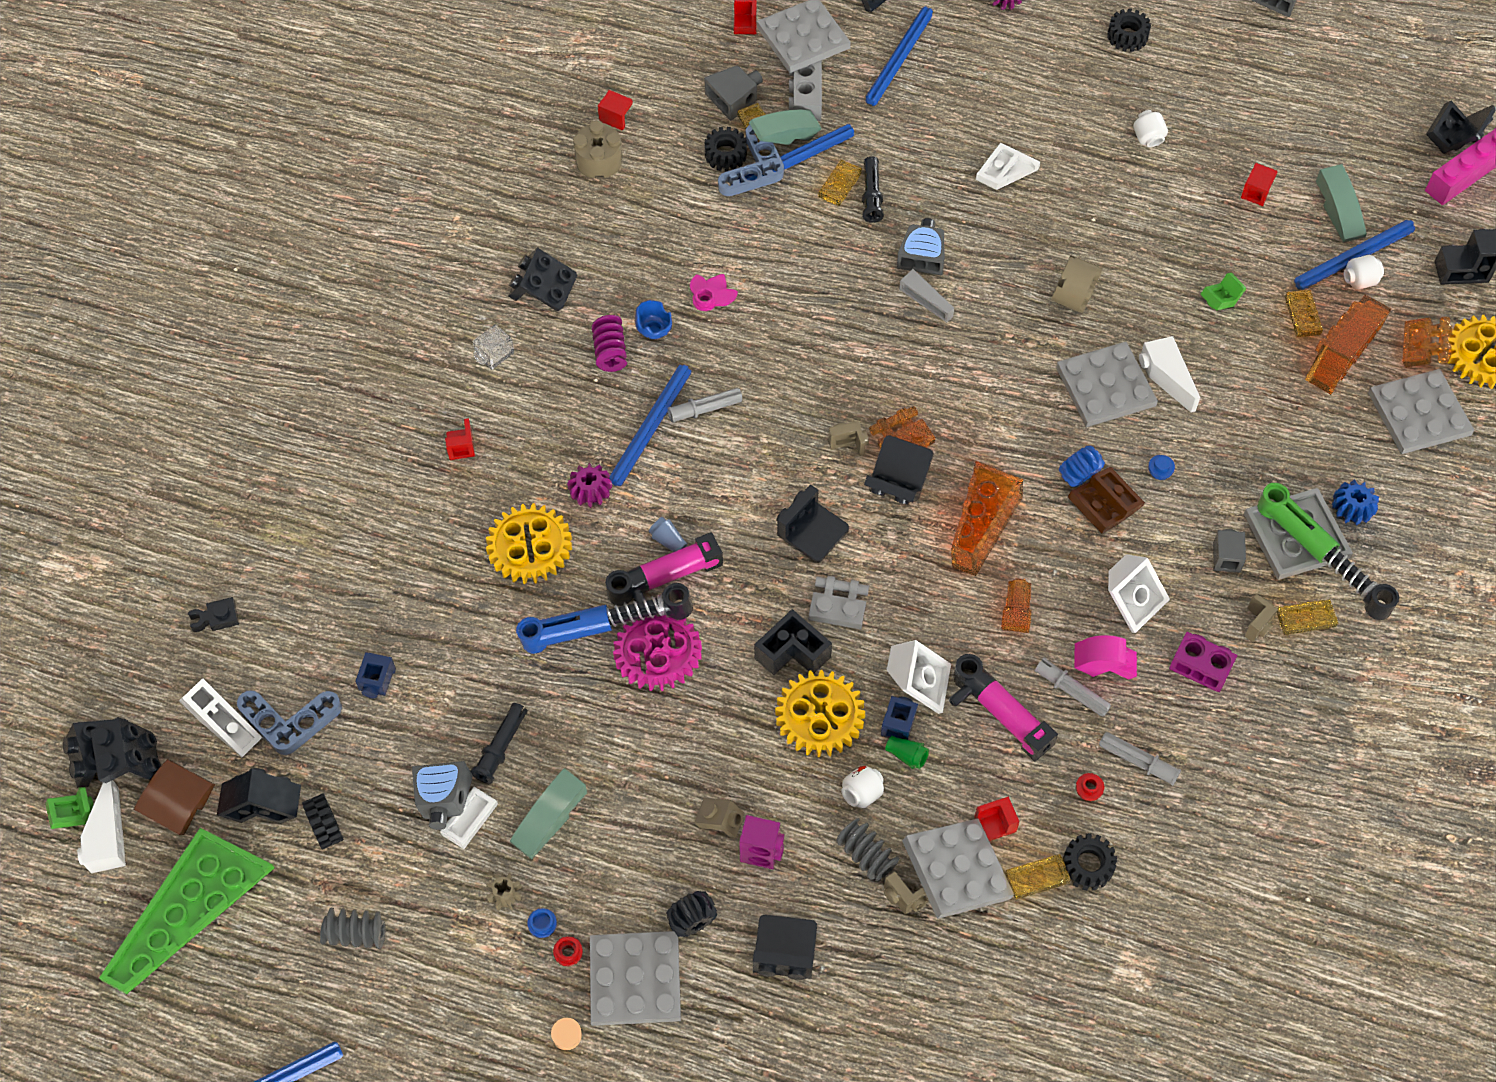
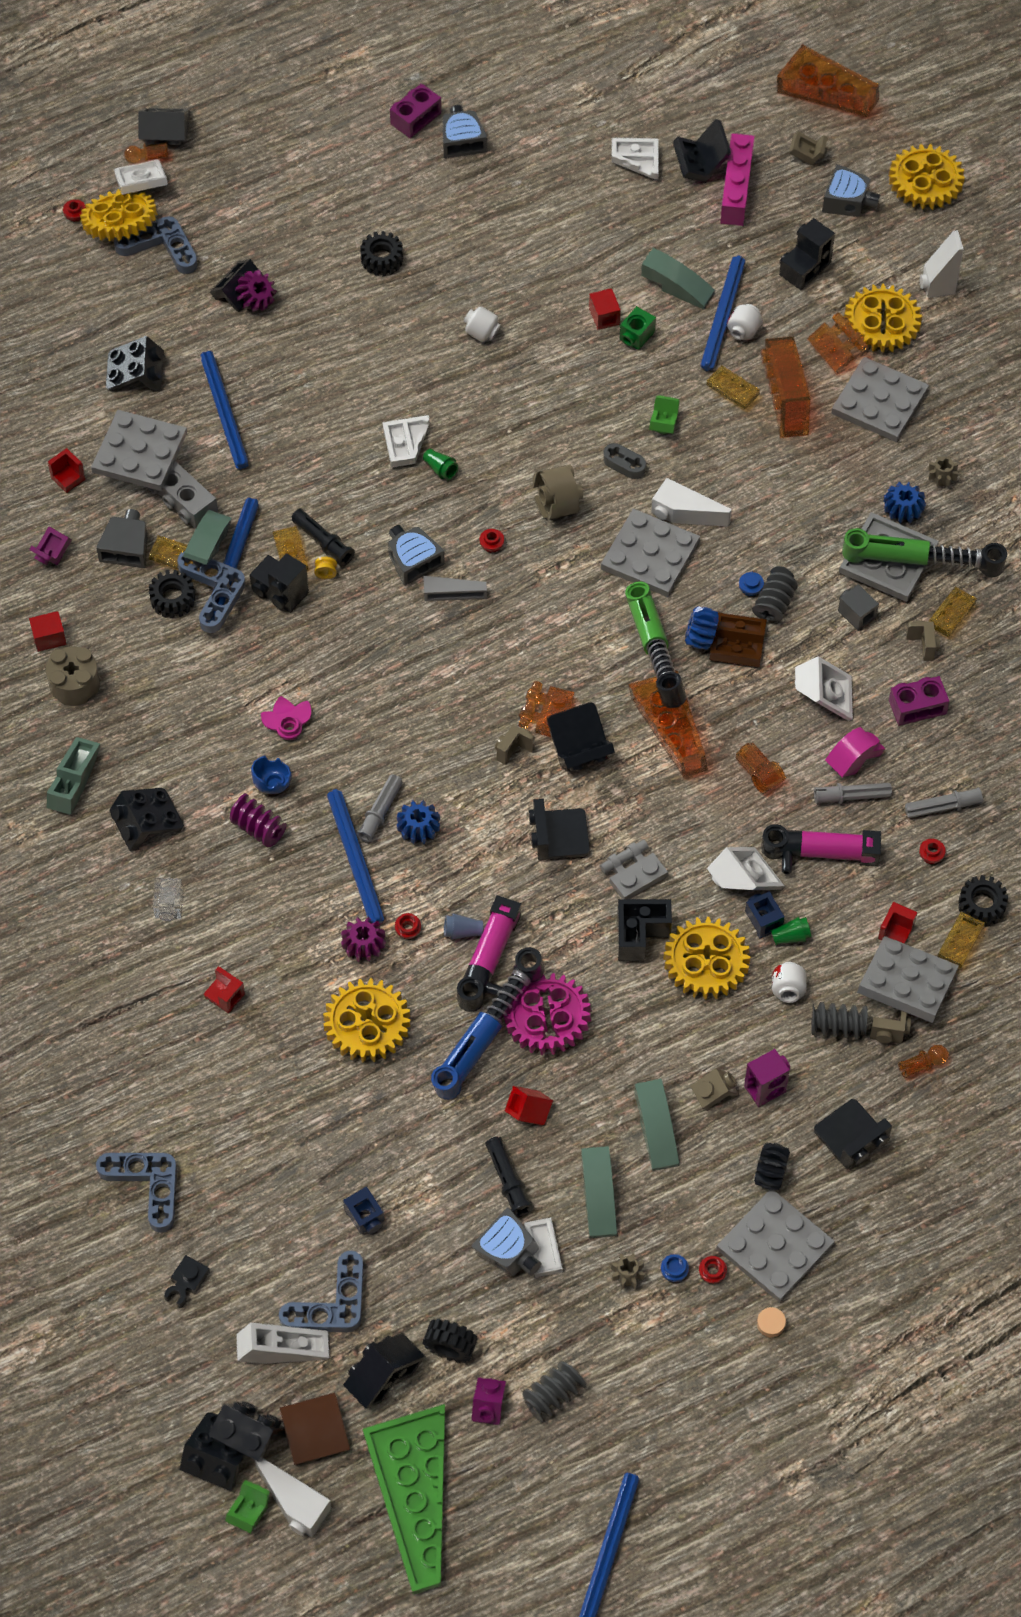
camera: 45 degrees left, 0 degrees up
(275, 529) = (156, 1178): none -> sand blue beam
(306, 890) = (488, 1400): none -> magenta bracket
(526, 216) = (72, 775): none -> sand green slope
(571, 704) = (528, 1105): none -> red panel
(632, 497) = (407, 919): none -> red plate
(645, 802) = (656, 1124): none -> sand green slope
(680, 58) = (51, 546): none -> magenta bracket
(719, 436) = (420, 813): none -> blue gear
(805, 196) = (281, 581): none -> black brick
(850, 211) = (325, 567): none -> yellow bush
(919, 949) = (936, 1055): none -> clear orange pin
(996, 288) = (491, 545): none -> red plate
(1013, 205) = (441, 464): none -> green cone
(1027, 447) = (655, 644): none -> piece
(1153, 304) = (624, 461): none -> dark grey beam
(1168, 488) = (775, 594): none -> dark grey piece
(1270, 216) = (637, 328): none -> green brick
(1406, 95) = (637, 155): none -> white wing
(1415, 503) = (943, 471): none -> dark tan gear

